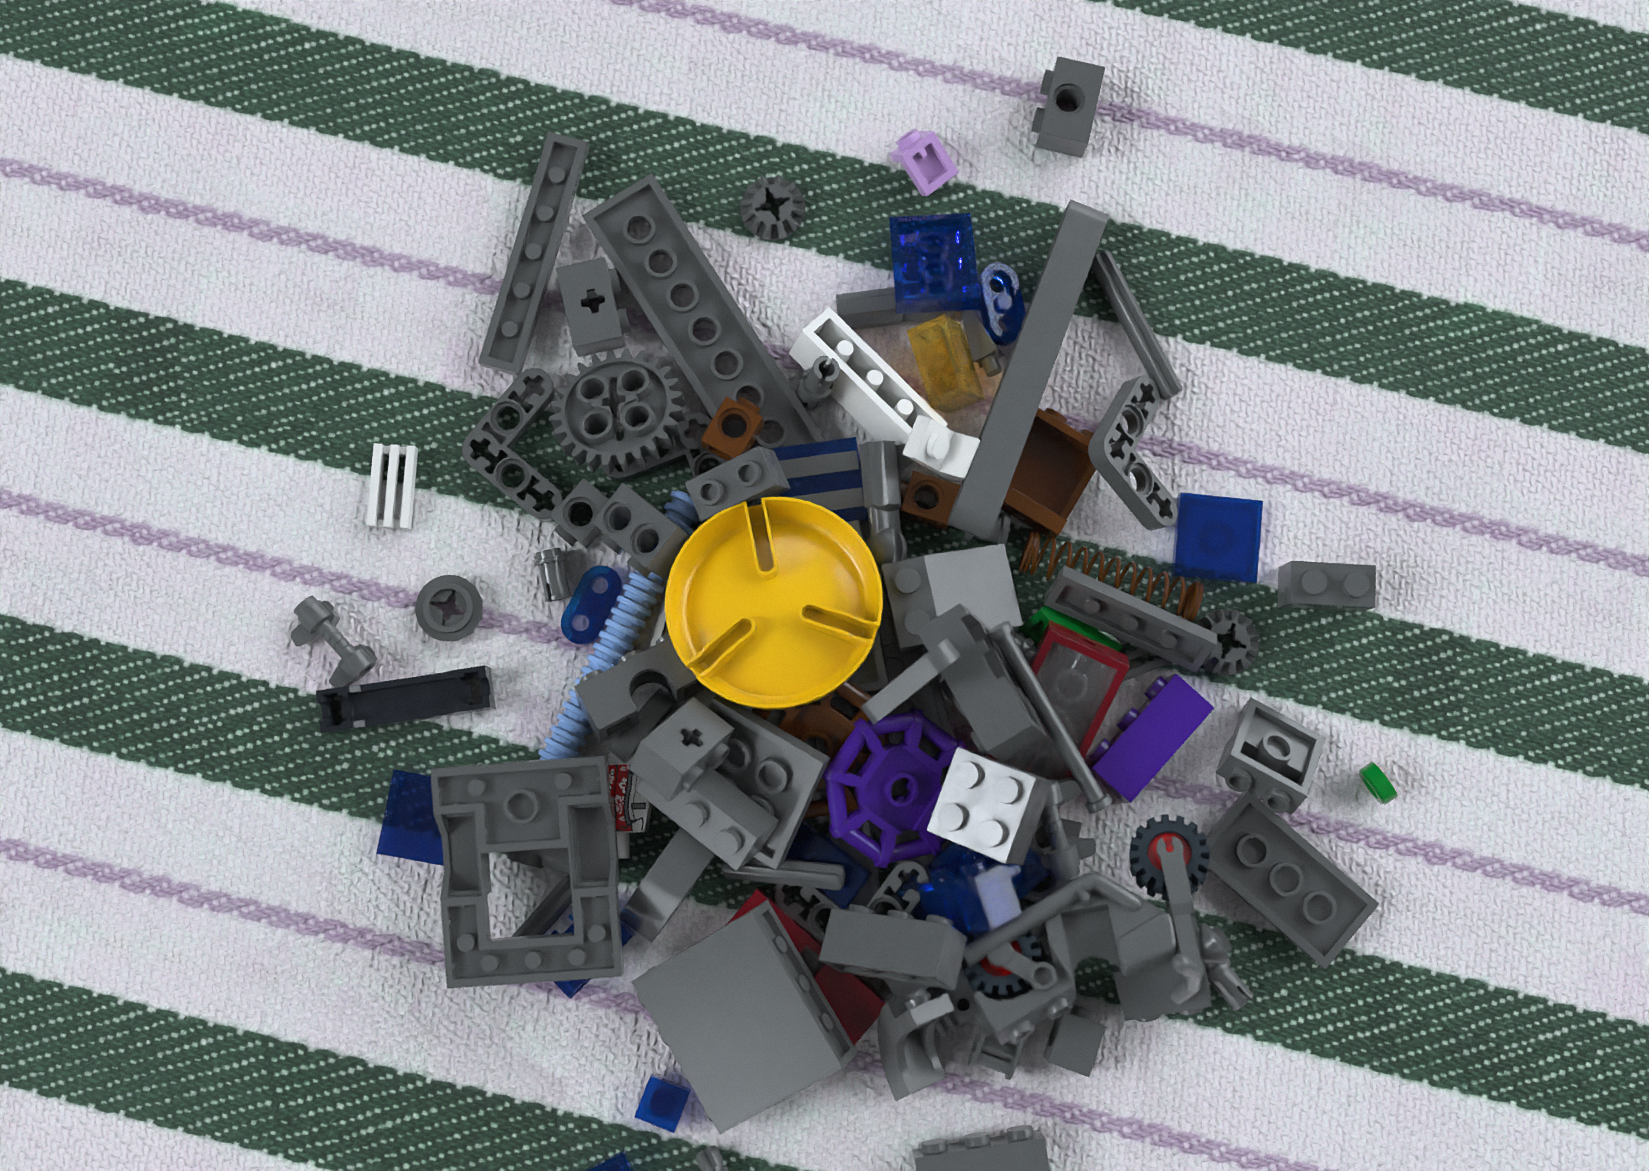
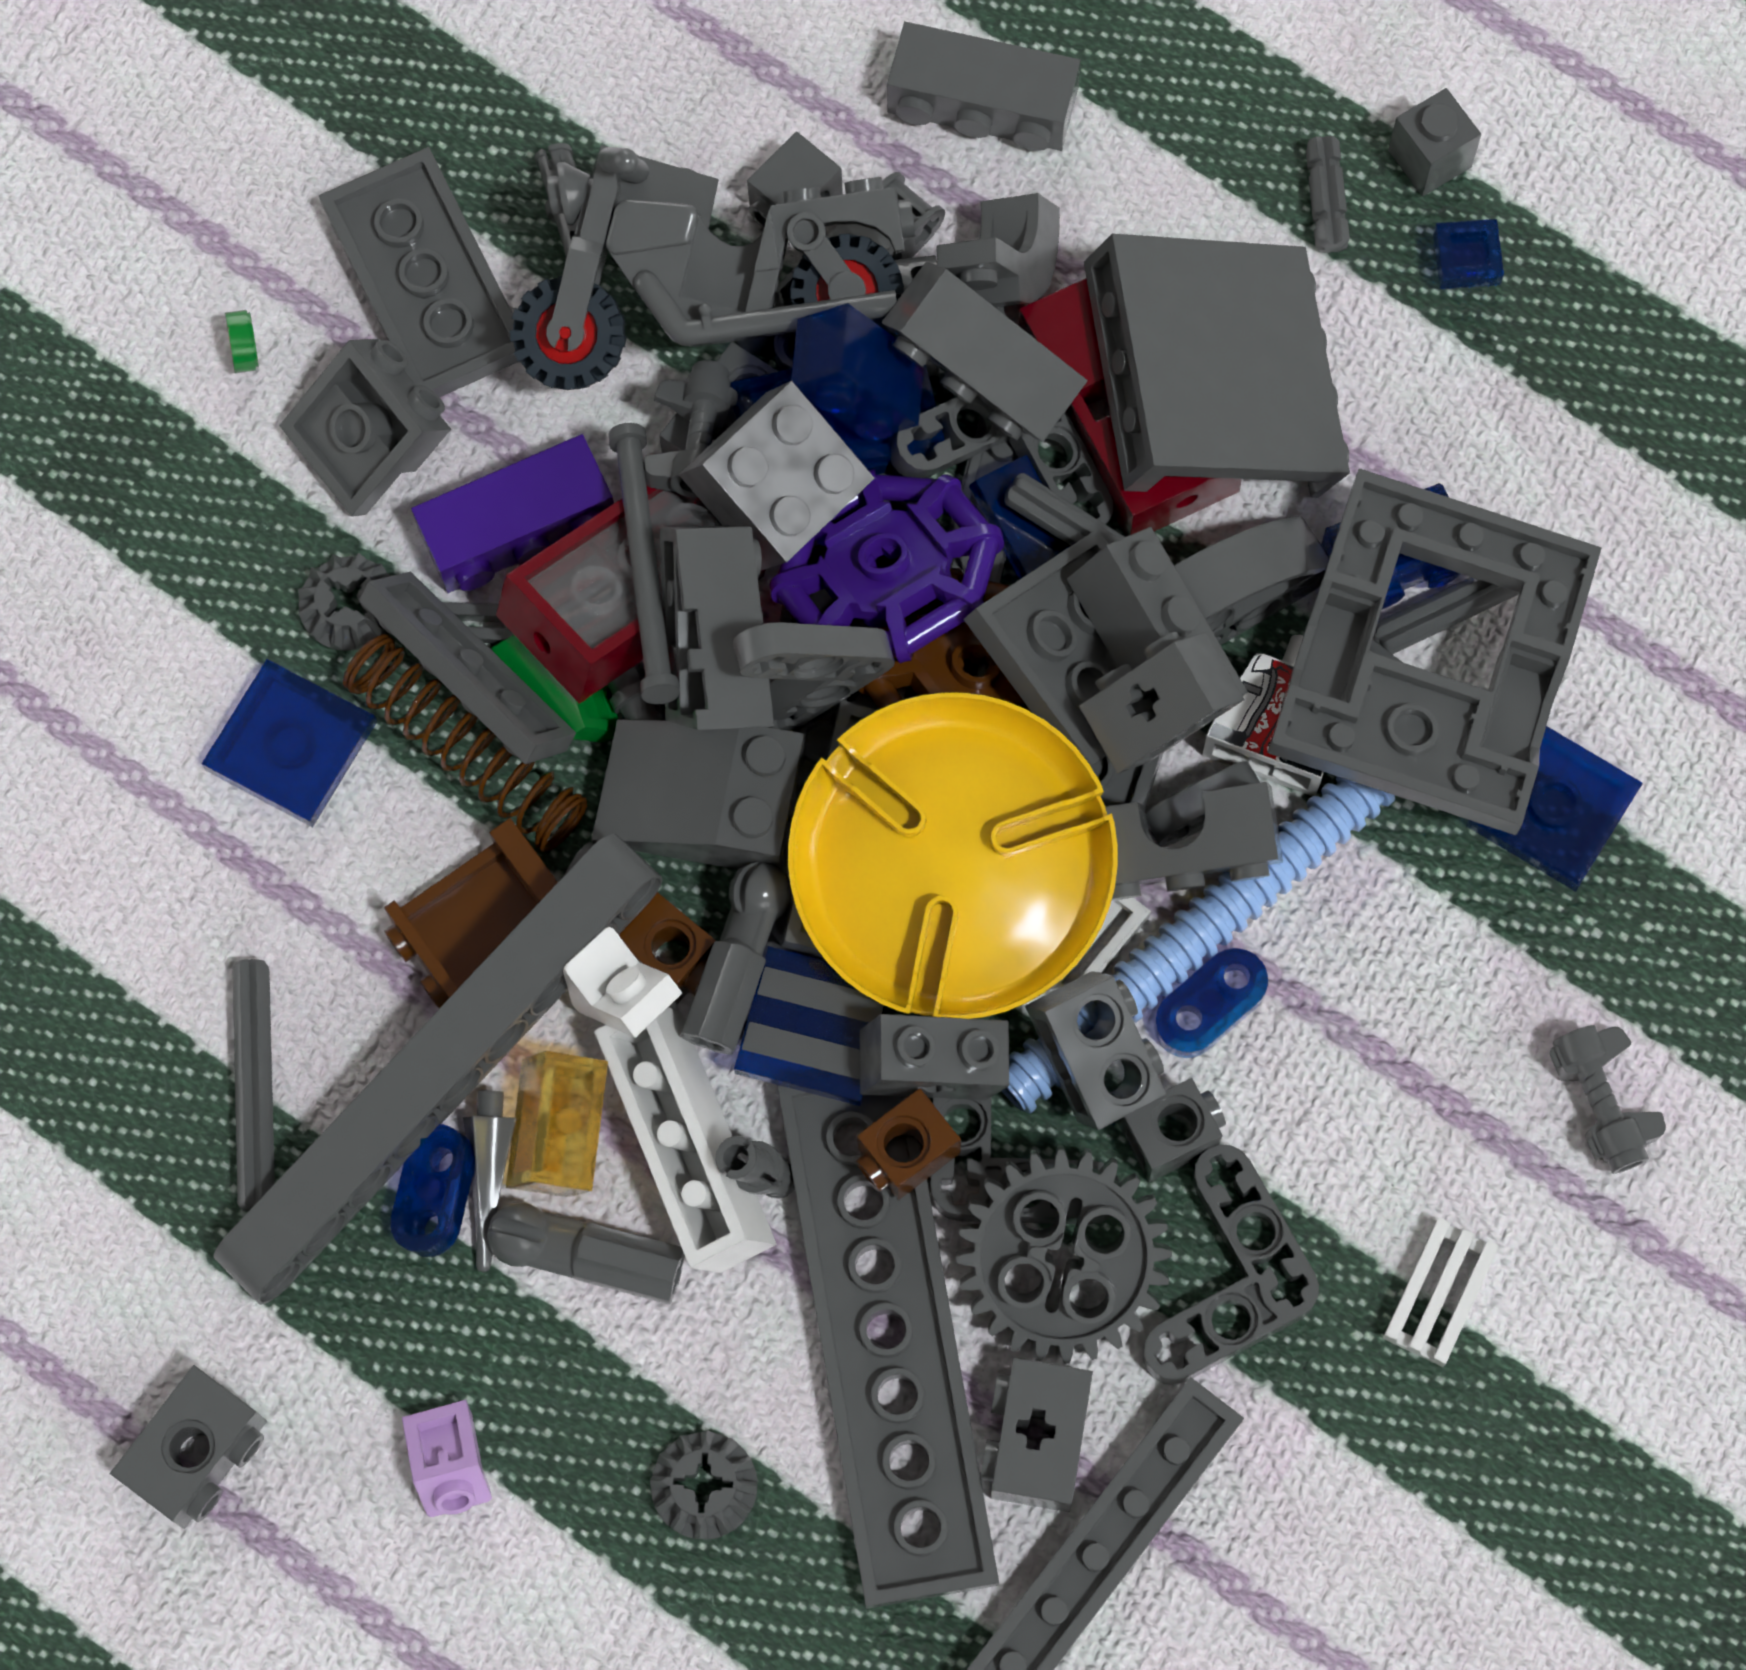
camera: 150 degrees left, 10 degrees down
(405, 700) = (1527, 973): black piece -> none
(440, 591) = (1413, 1049): dark grey gear -> none
(553, 574) = (1250, 1065): dark grey pin -> none
(662, 1103) = (1366, 320): clear blue plate -> none
(934, 263) = (505, 1277): clear blue plate -> none
(1151, 500) = (375, 904): dark grey beam -> none
(1326, 586) = (177, 611): dark grey brick -> none

